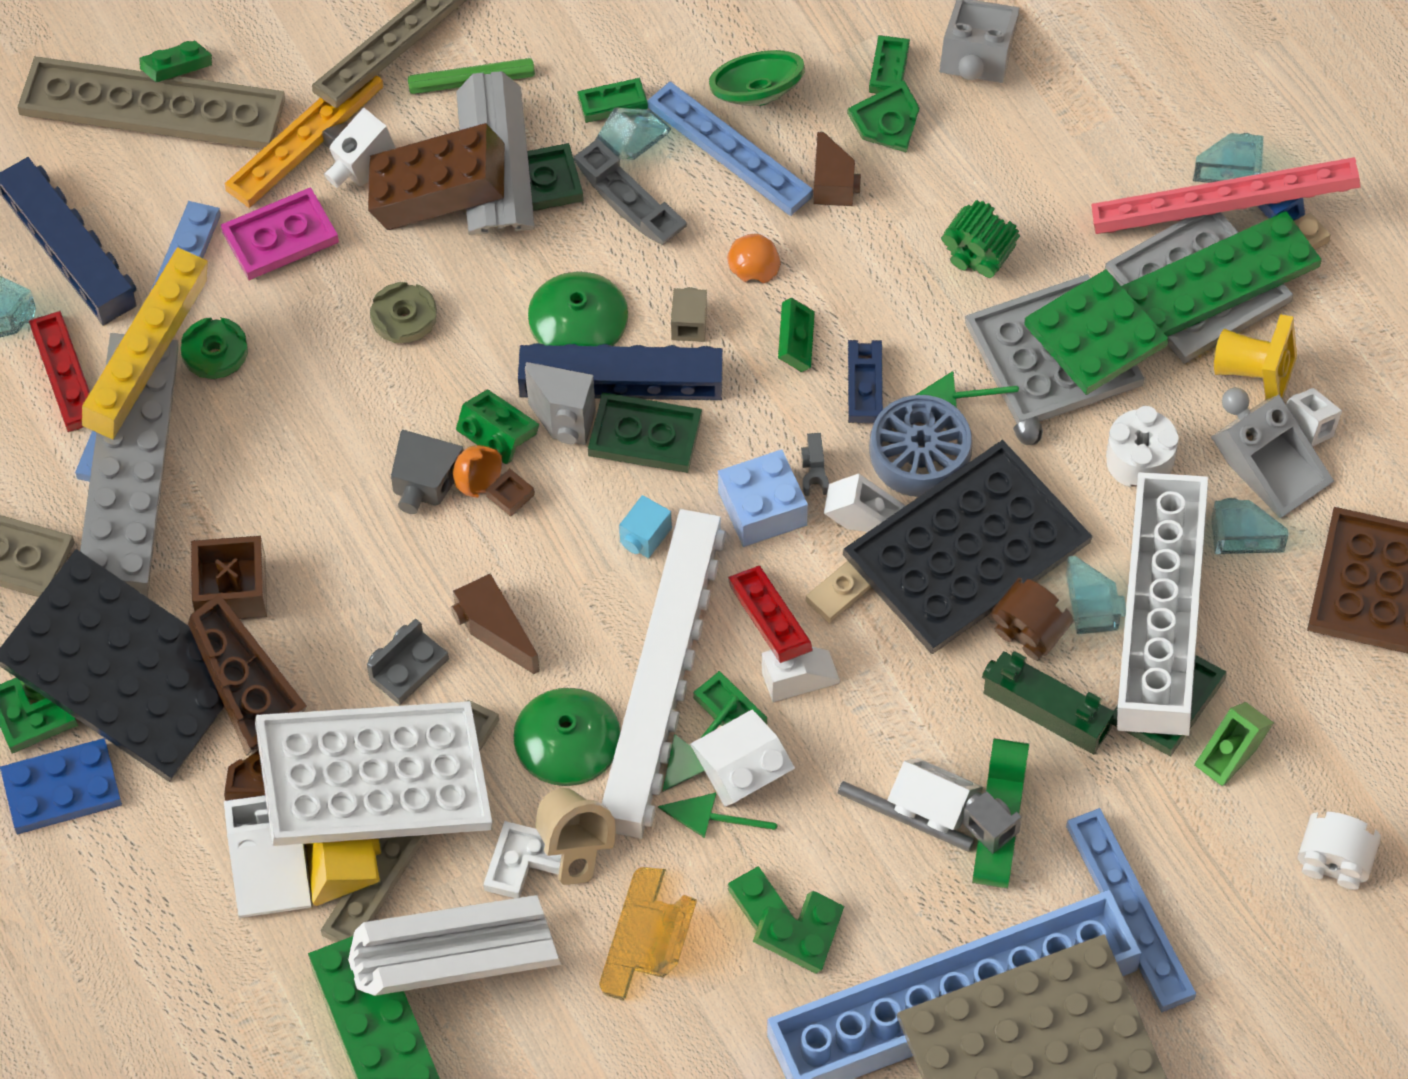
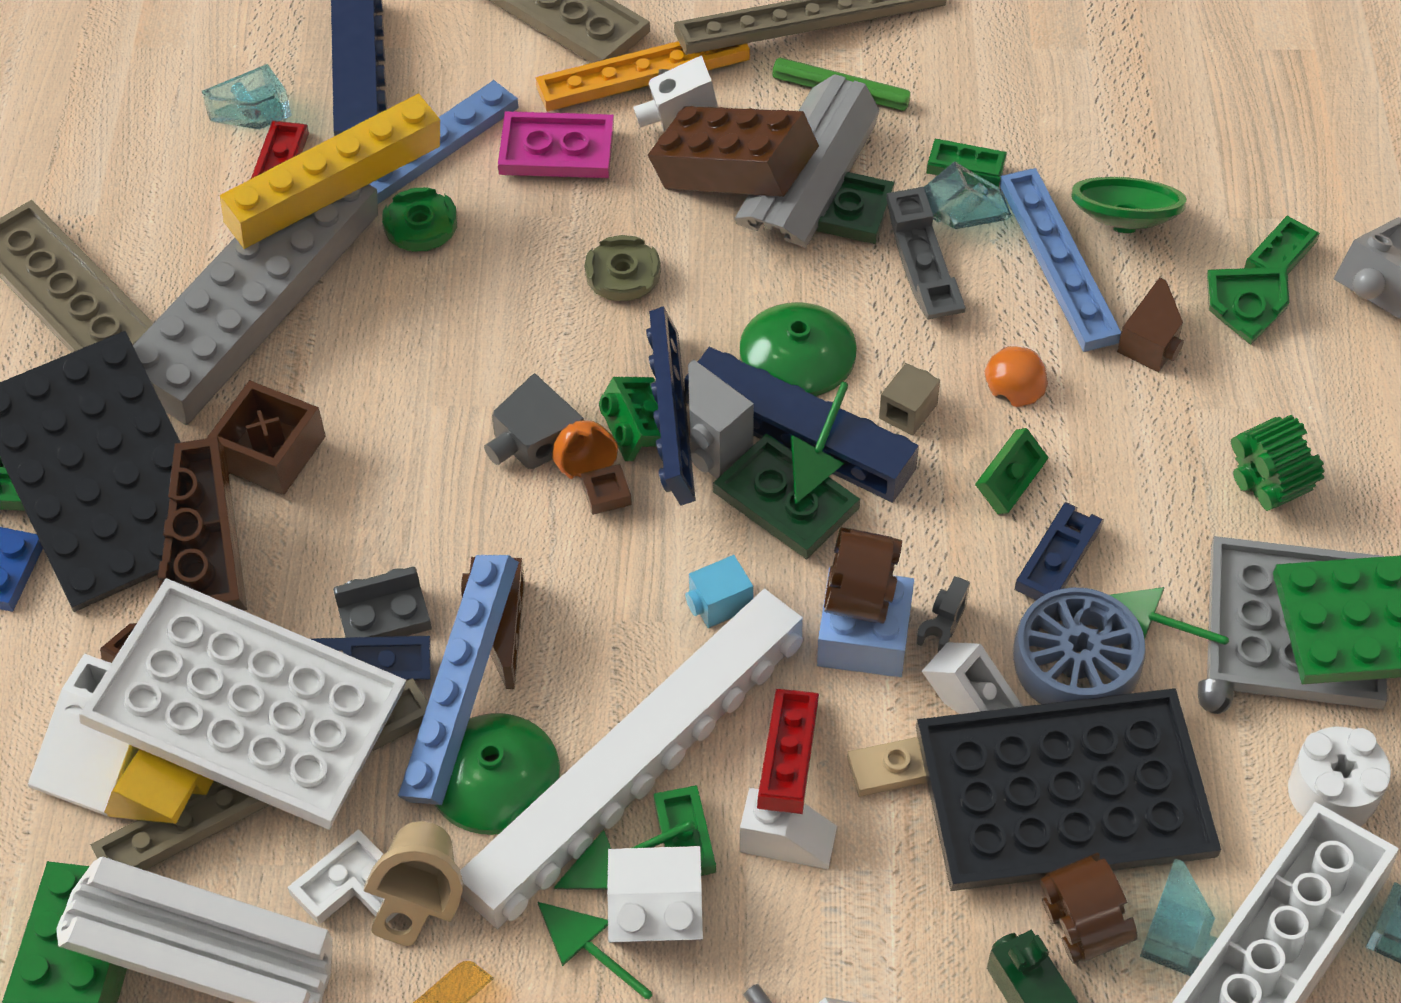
camera: 30 degrees right, 5 degrees down
(447, 687) = (398, 655): none -> dark blue plate
(506, 681) = (458, 680): none -> medium blue plate
(527, 413) = (671, 412): none -> dark blue plate
(651, 398) = (809, 462): none -> green piece
(754, 465) = (862, 575): none -> reddish brown brick

